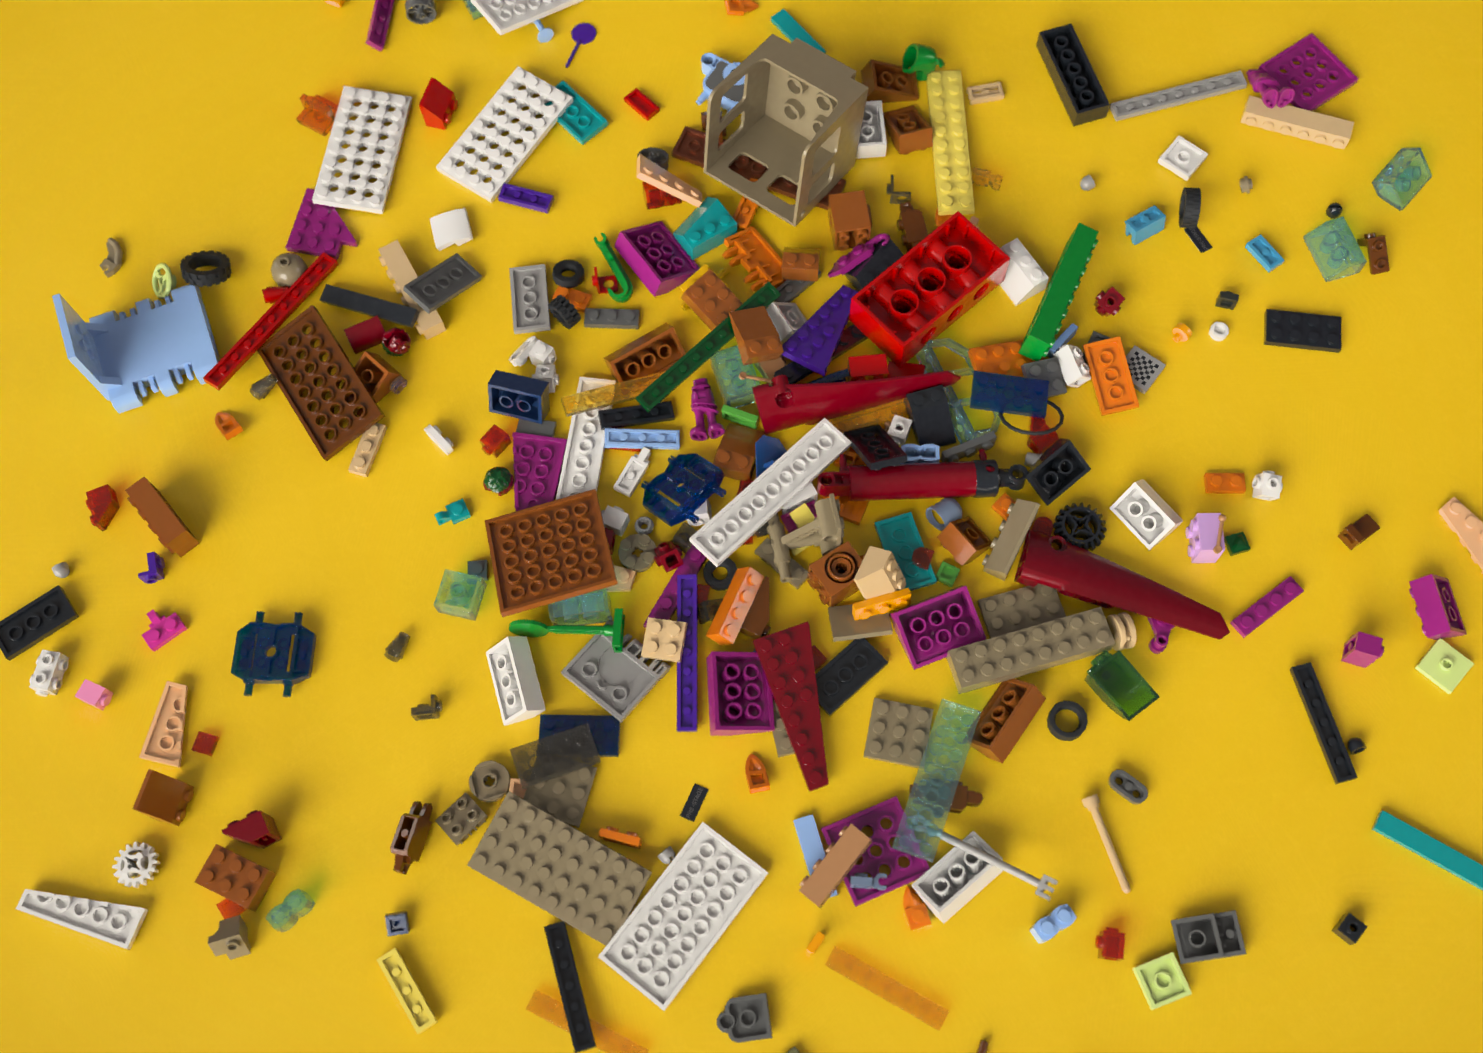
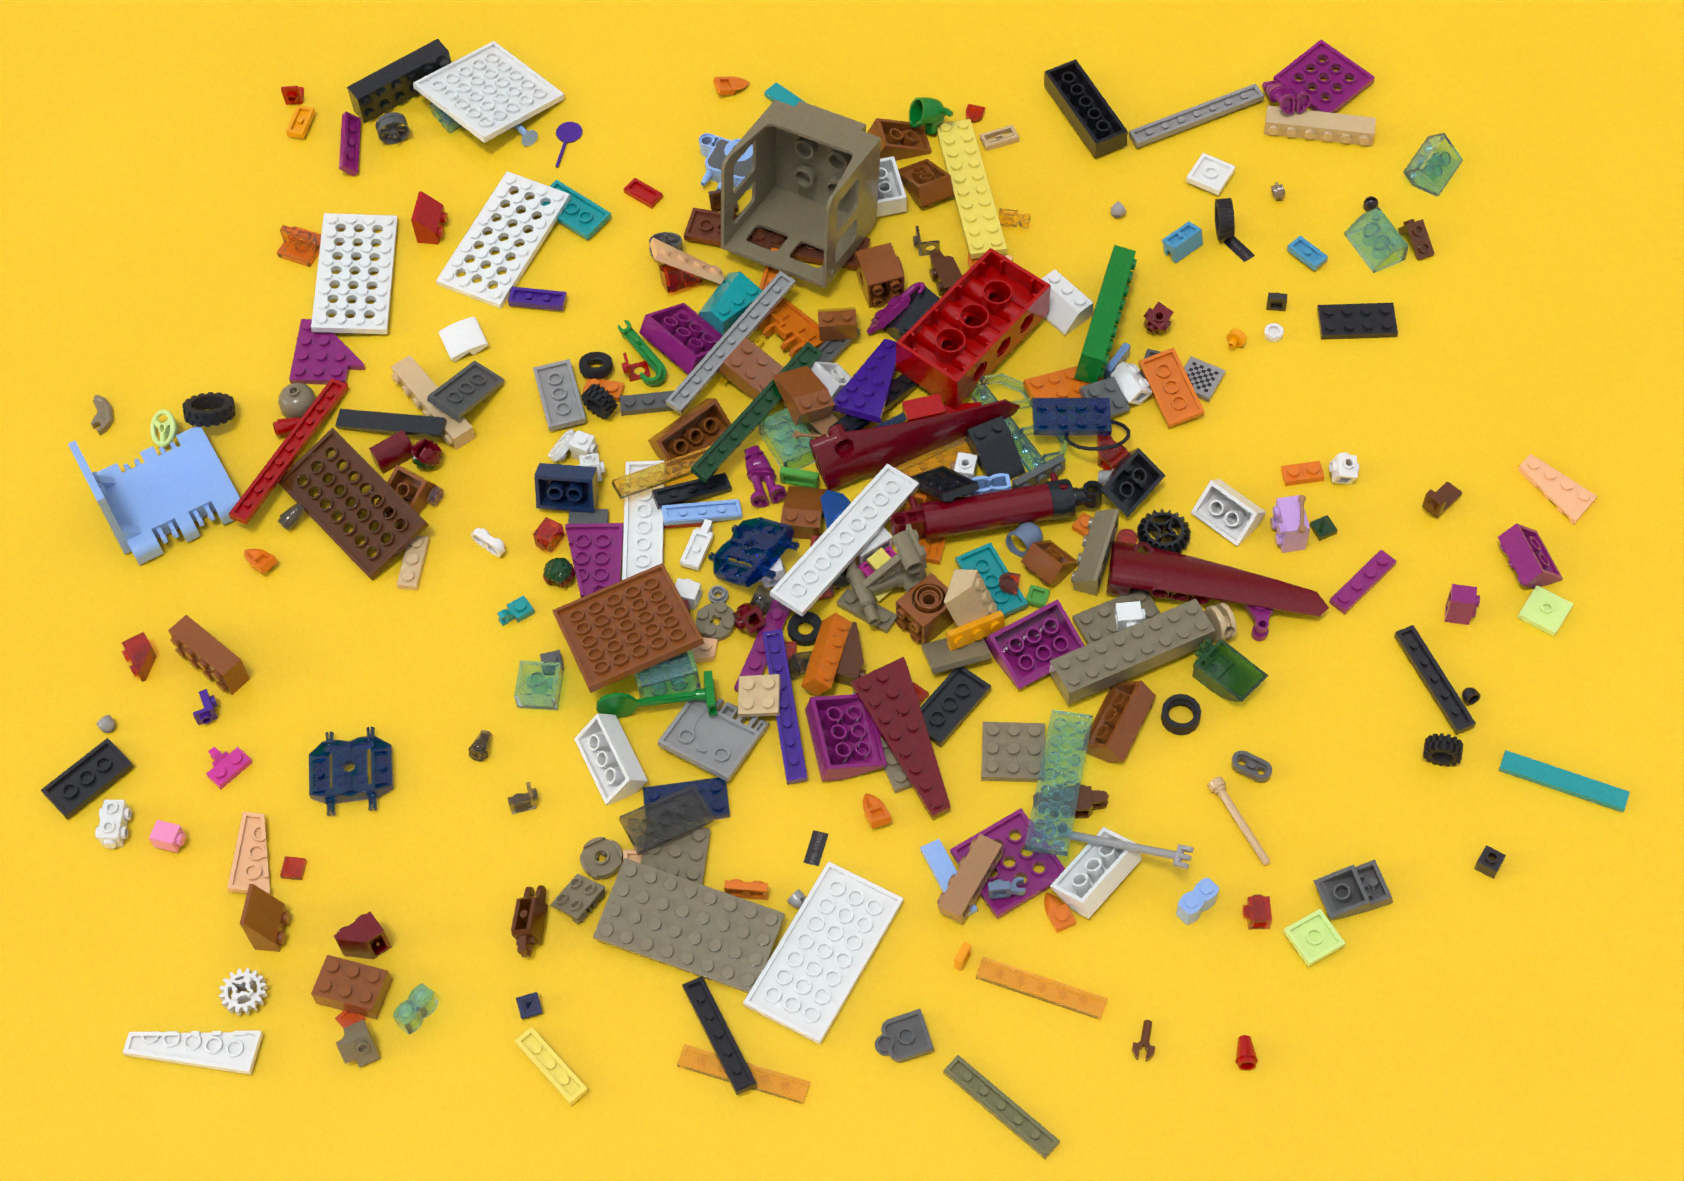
camera: 10 degrees left, 10 degrees down
(694, 270) = (742, 328): none -> light grey plate
(966, 64) = (975, 113): none -> clear red tile
(1033, 612) = (1128, 614): none -> white brick
(1321, 802) = (1443, 750): none -> black tyre

